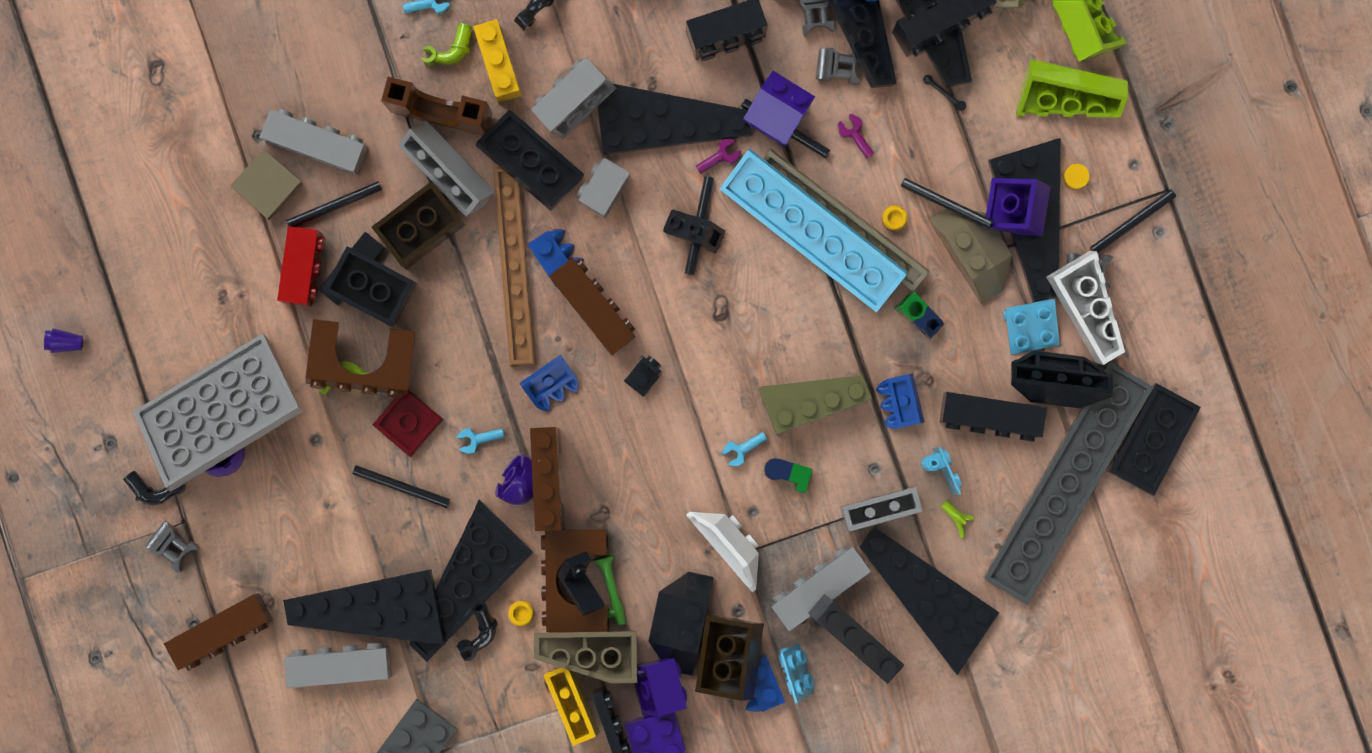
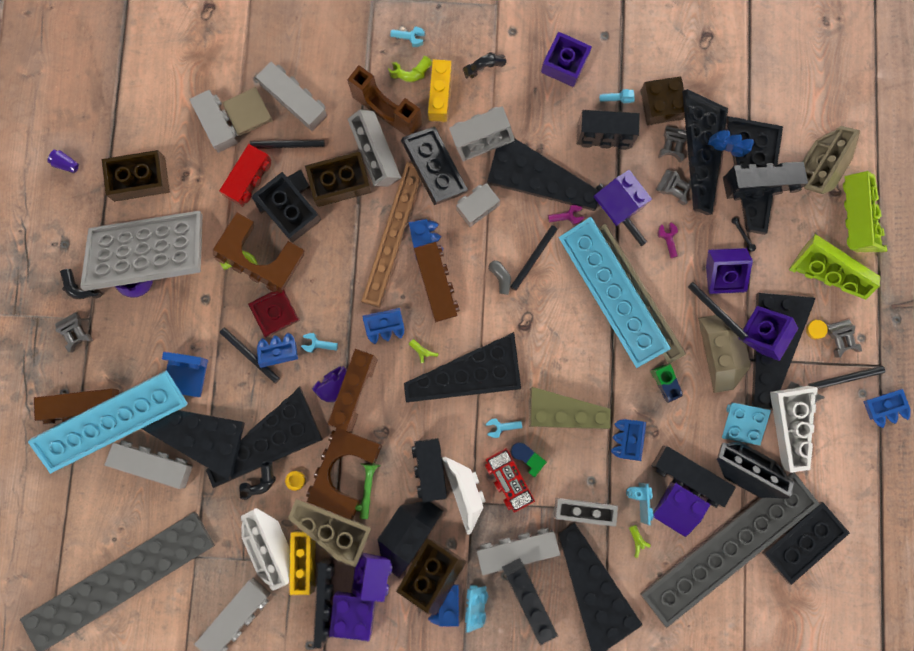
camera: 25 degrees right, 5 degrees down
(164, 323) = (135, 175): none -> dark brown brick
(230, 212) = (214, 121): none -> light grey brick
(268, 635) = (108, 422): none -> medium azure plate
(332, 542) = (186, 372): none -> blue bracket
(433, 468) = (277, 351): none -> blue plate
(521, 705) = (266, 548): none -> white wedge
(578, 584) = (343, 476): black bracket -> none
(608, 396) = (421, 350): none -> lime bar
(644, 375) = (453, 345): black bracket -> none
(669, 264) = (502, 275): none -> dark grey arm
(677, 535) = (429, 470): none -> black brick
(688, 394) = (479, 372): none -> black wing
(694, 229) = (530, 258): black bracket -> none
(776, 509) = (509, 480): none -> brick
(894, 218) = (674, 307): yellow tile -> none
(942, 147) = (728, 270): none -> dark purple slope
(992, 460) = (680, 509): none -> dark purple slope
(1103, 166) = (842, 329): none -> flat silver piece
(1192, 237) = (888, 406): none -> blue plate

